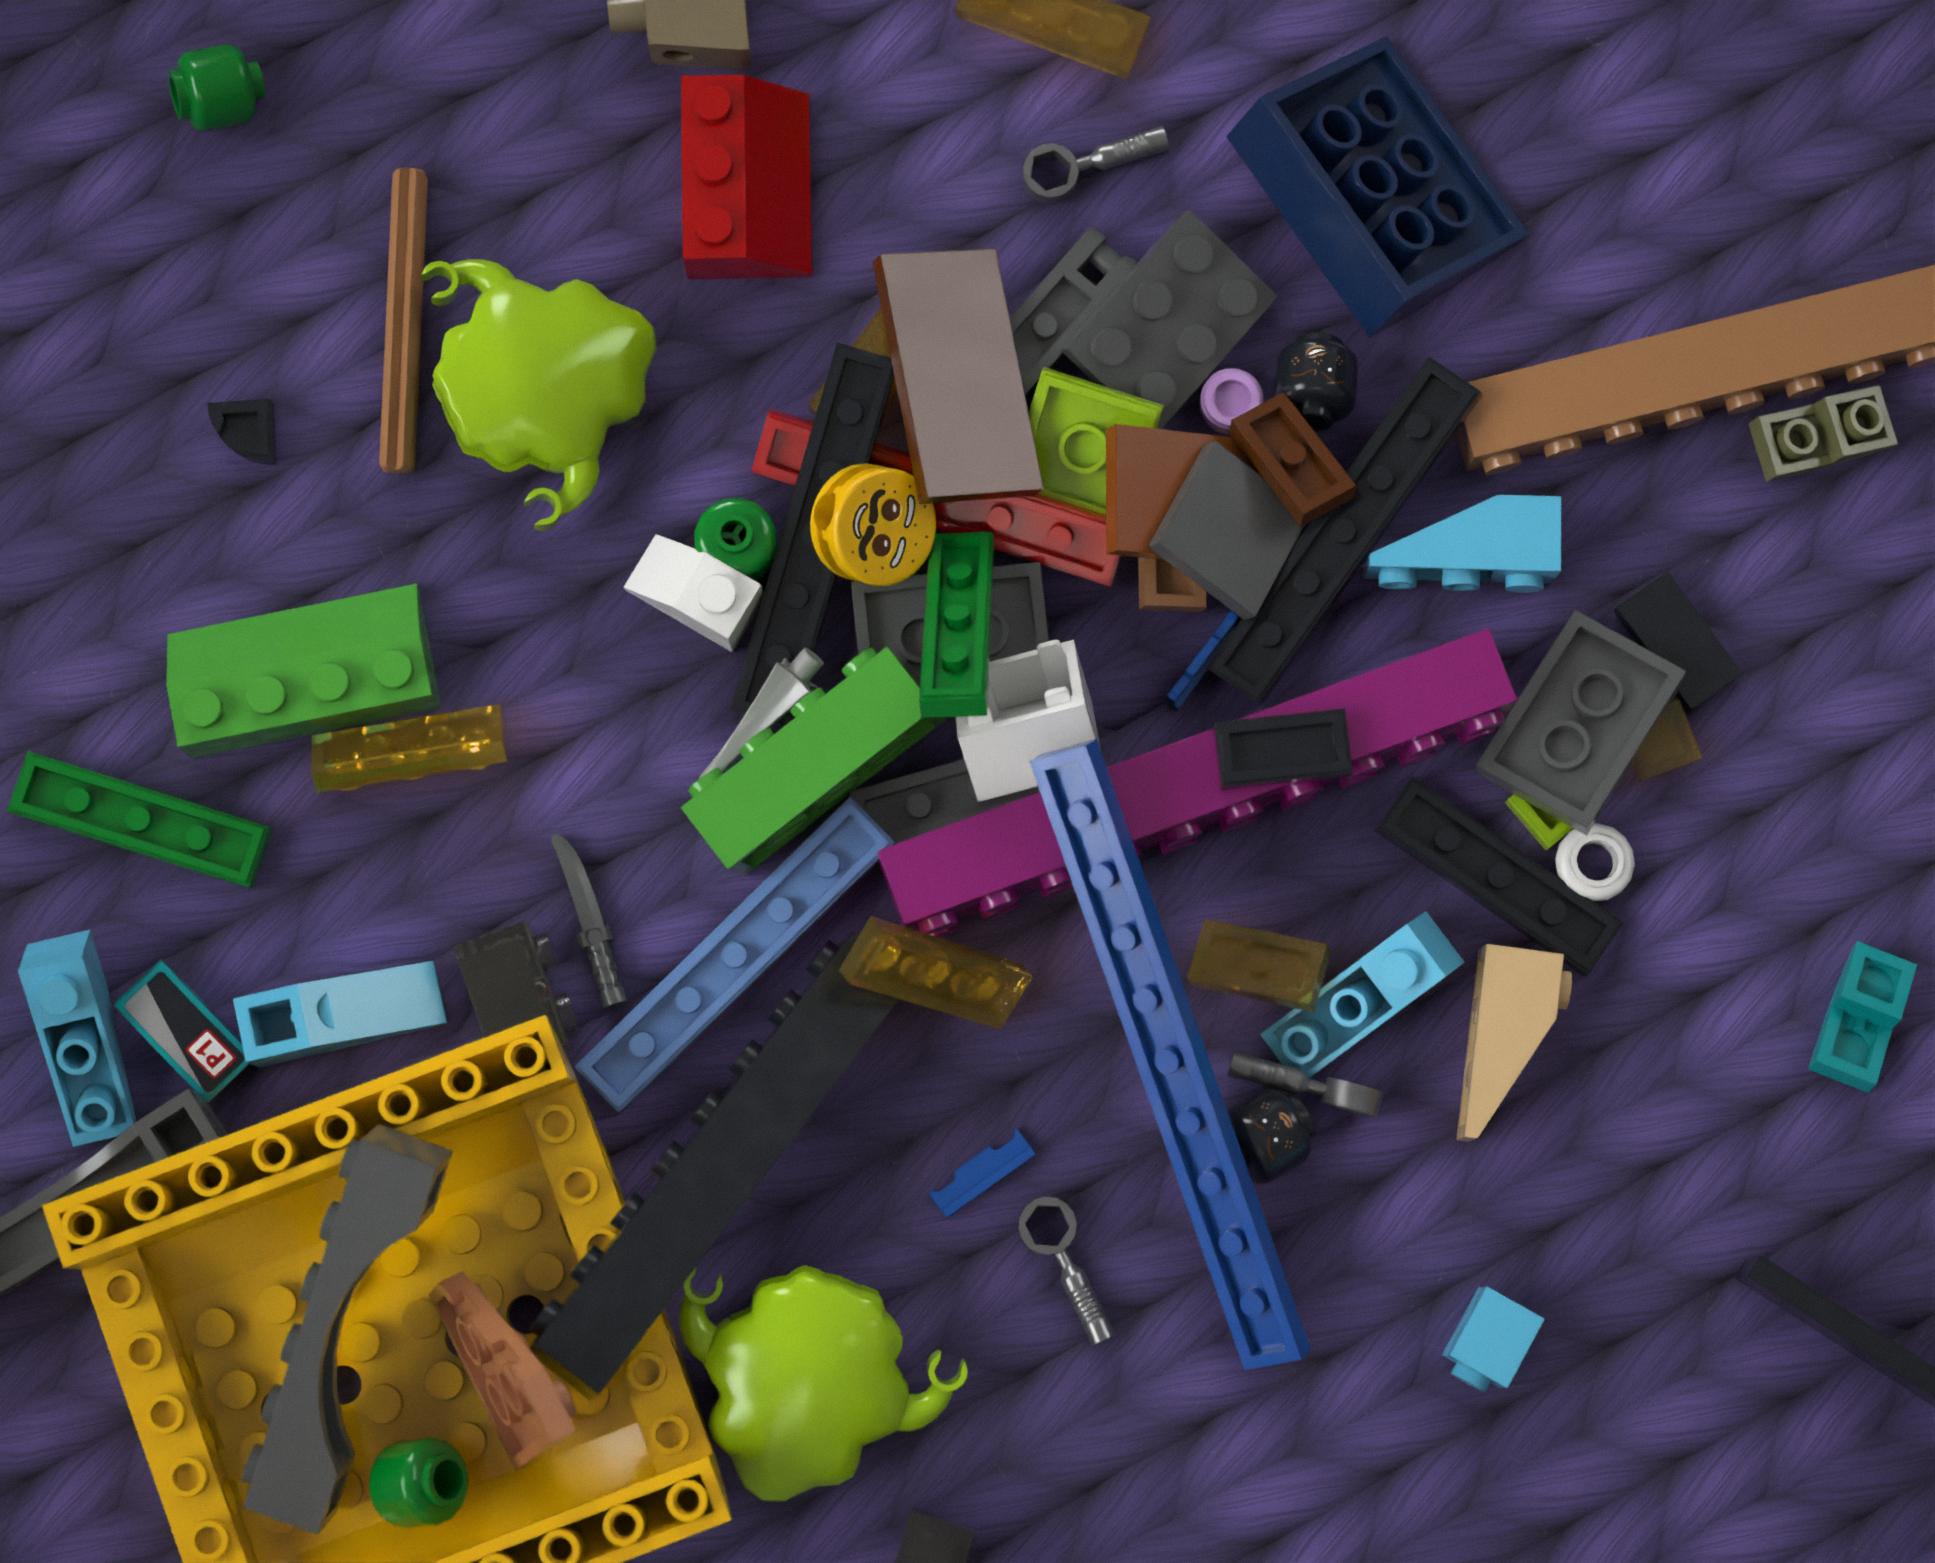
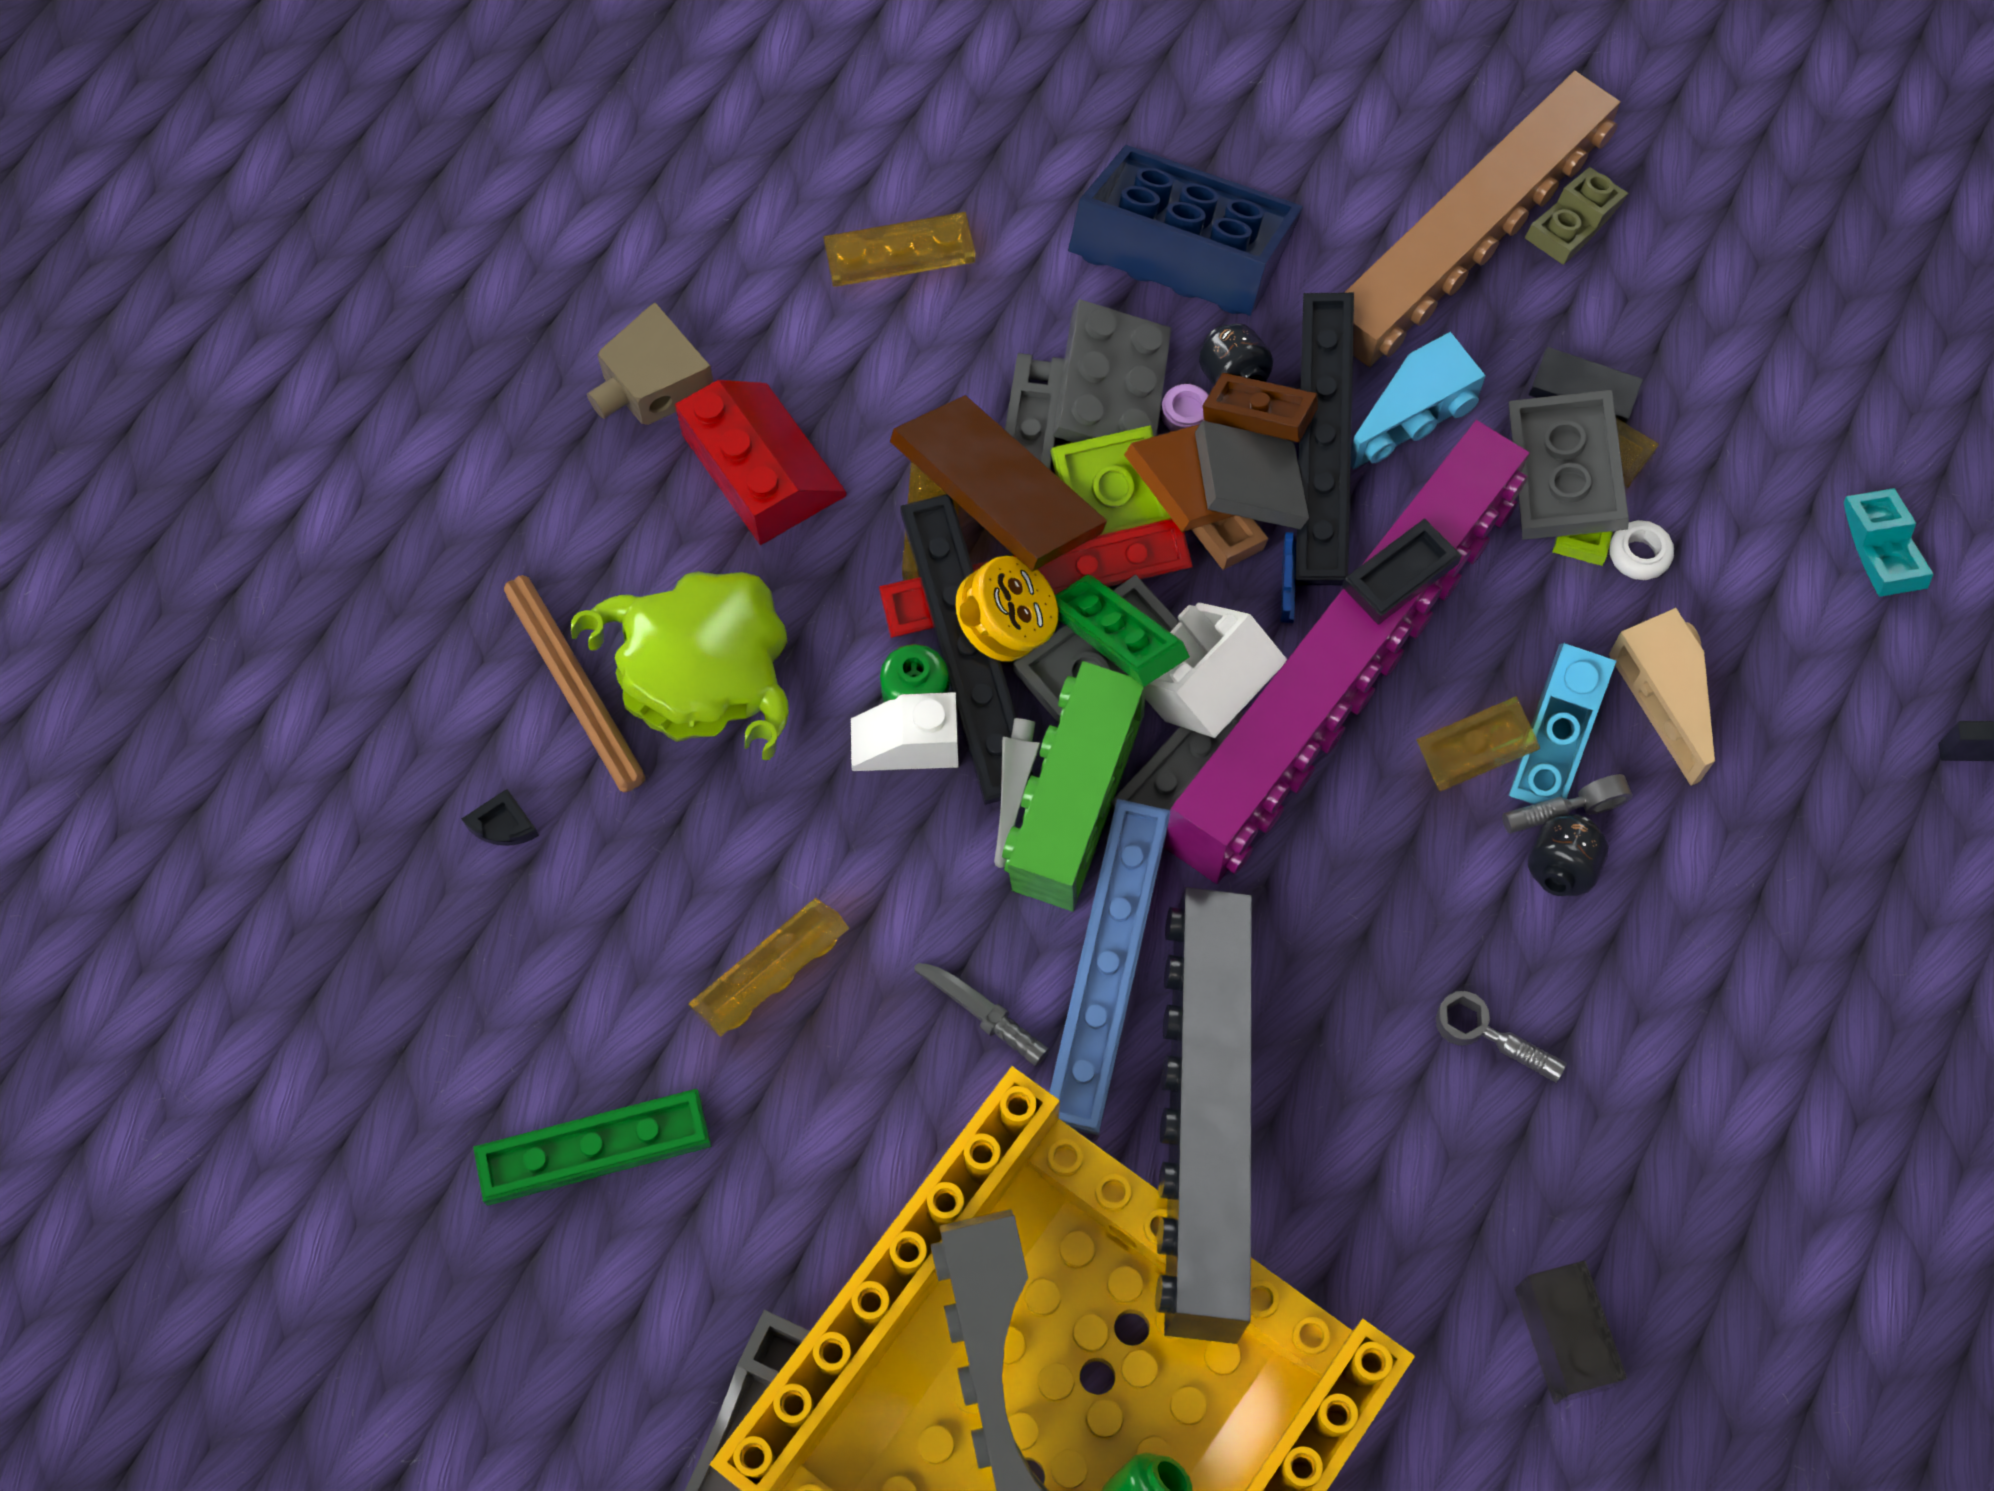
camera: 30 degrees left, 15 degrees down
(78, 1035) = (648, 1338): medium azure slope -> none
(183, 1030) = (726, 1279): slope -> none
(215, 87) = (336, 604): green head -> none
(300, 672) = (653, 963): bright green slope -> none
(338, 1013) = (839, 1189): medium azure slope -> none
(510, 1381) = (1165, 1363): nougat plate -> none
(512, 981) = (950, 1080): clear smoke brick -> none
(806, 1379) = (1379, 1231): lime piece -> none
(935, 973) = (1264, 877): clear yellow plate -> none
(982, 1173) = (1389, 1012): blue piece -> none
(1103, 157) = (993, 313): flat silver piece -> none
(1170, 1054) = (1477, 827): blue plate -> none
(1491, 1340) = (1825, 895): medium azure brick -> none
(1498, 876) = (1582, 596): black tile -> none

